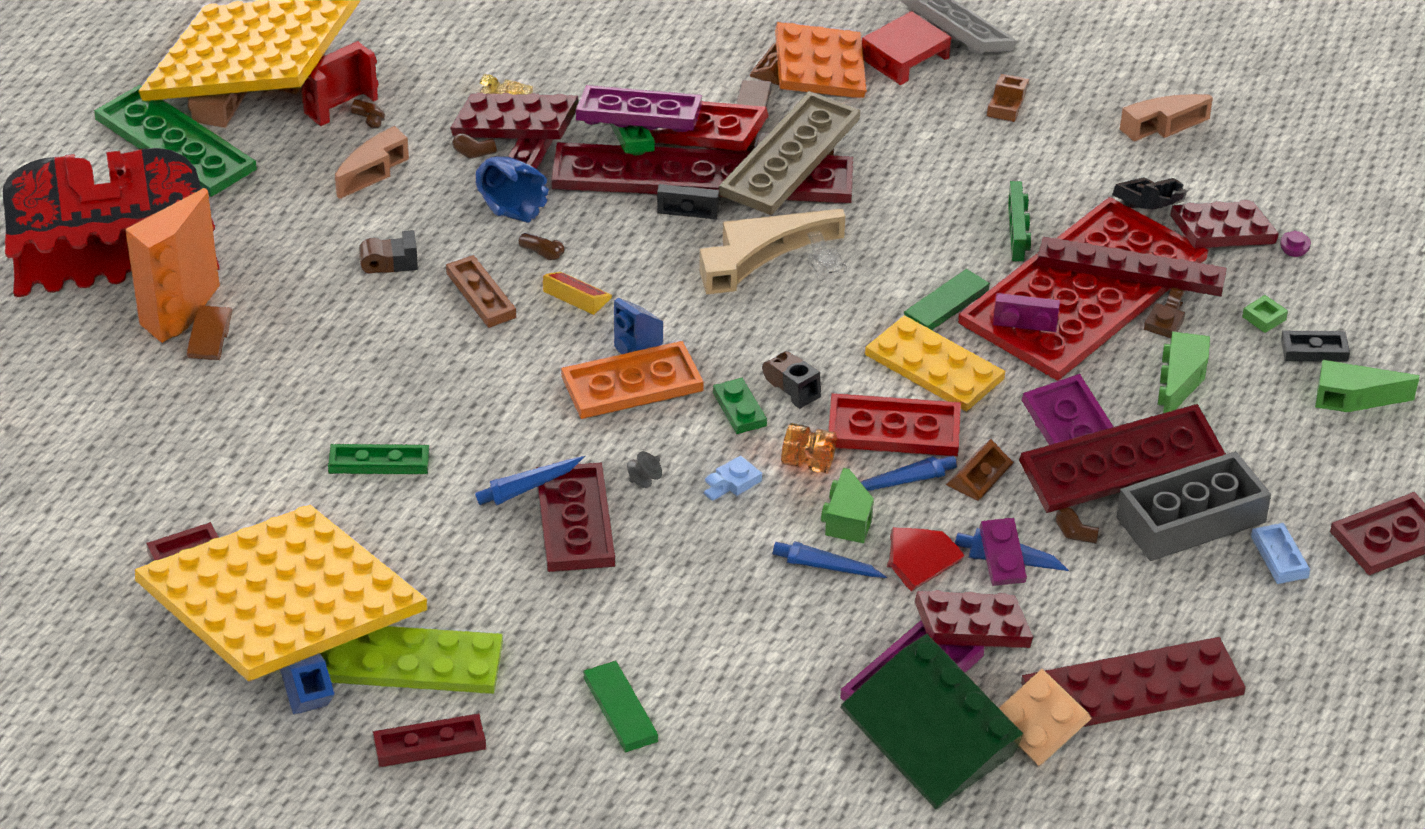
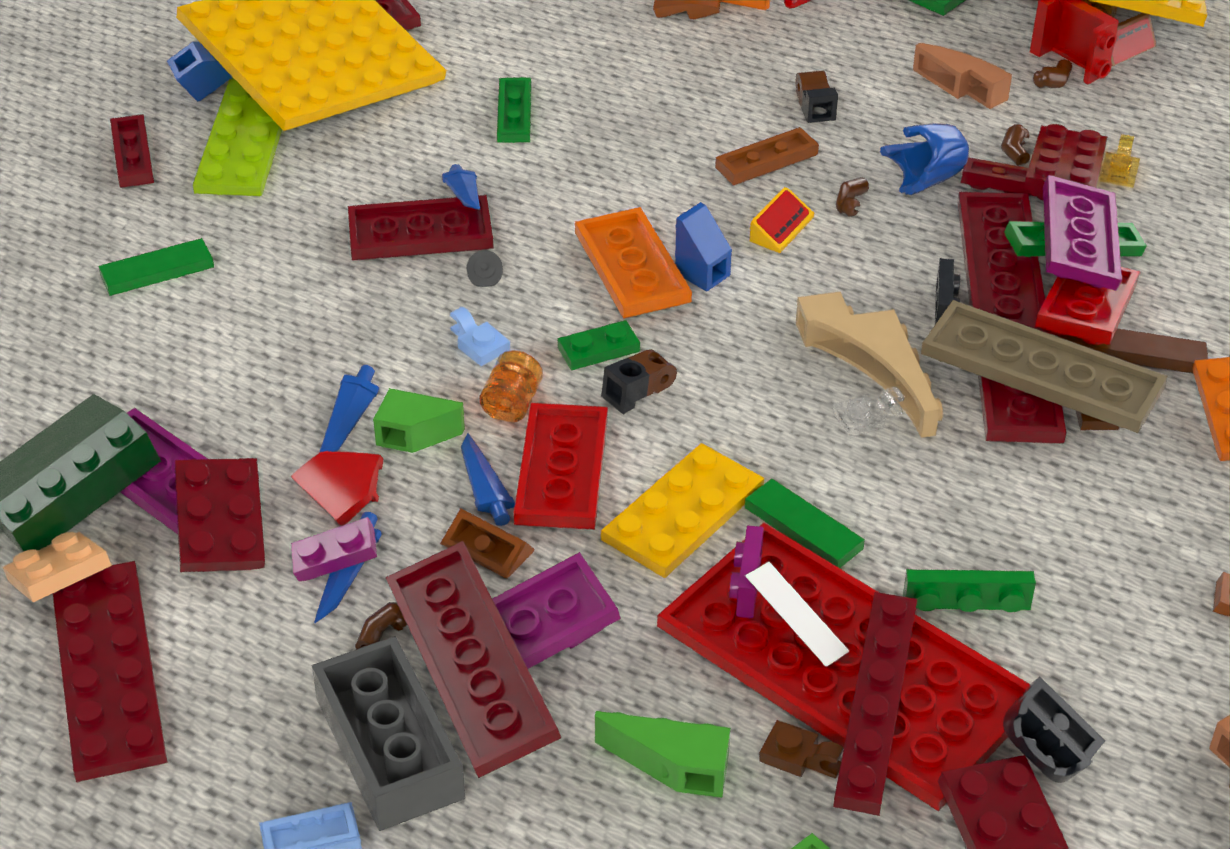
camera: 90 degrees right, 0 degrees up
(1068, 290) = (797, 613): none -> white sticker

